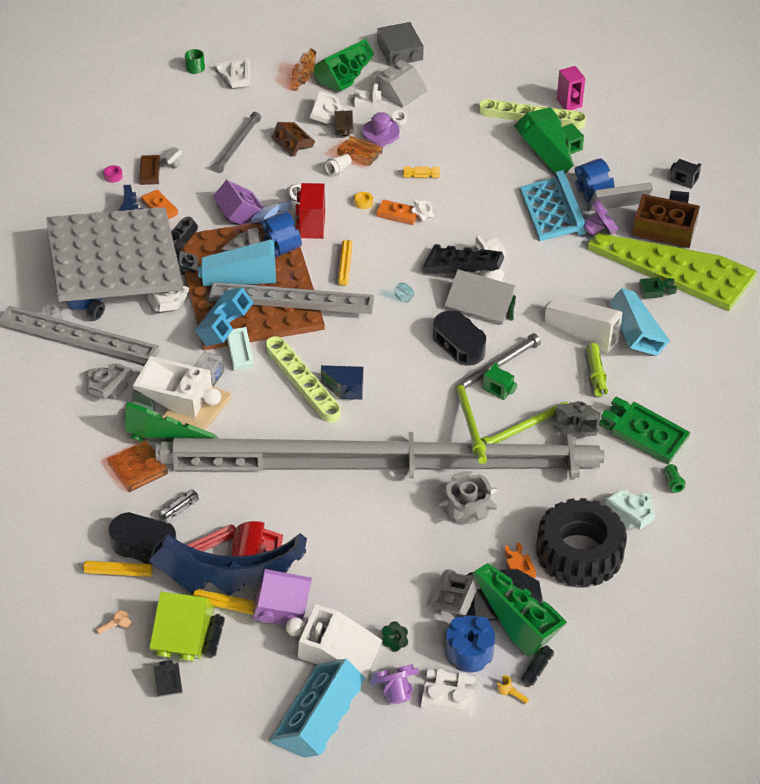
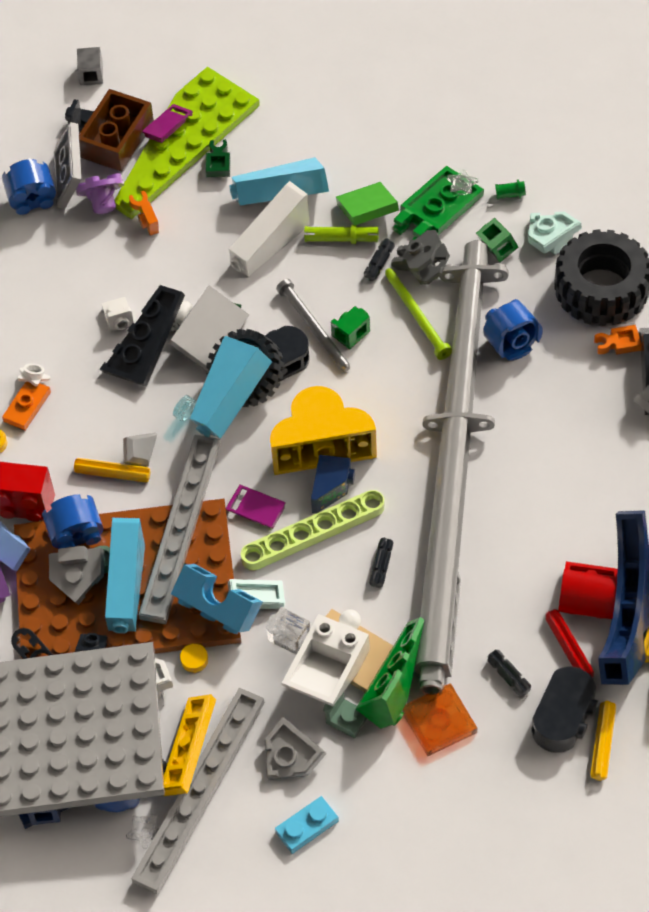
camera: 80 degrees left, 10 degrees up
(51, 397) = (306, 824): none -> medium azure plate
(82, 317) = (188, 744): none -> yellow plate
(186, 323) = (194, 658): none -> yellow tile
(275, 420) = (381, 562): none -> black axle
(320, 345) = (257, 507): none -> magenta piece
(363, 272) = (139, 449): none -> light grey piece
(386, 362) = (321, 428): none -> yellow brick
(412, 299) = (228, 386): none -> medium azure slope
(422, 315) = (273, 372): none -> black tyre
(468, 497) = (531, 372): light grey brick -> none
(478, 445) = (471, 346): lime bar -> none
(511, 479) = (512, 330): none -> blue brick
(564, 193) = (52, 220): medium azure fence -> none
(574, 395) = (379, 259): none -> black axle
(586, 249) = (147, 217): none -> orange plate
(611, 469) = (498, 239): none -> green brick
(631, 381) = (367, 203): none -> bright green tile
(668, 444) = (462, 183): none -> clear plate
(681, 249) = (166, 123): none -> magenta piece
(685, 173) = (27, 101): black brick -> none
(733, 202) = (89, 65): none -> flat silver brick

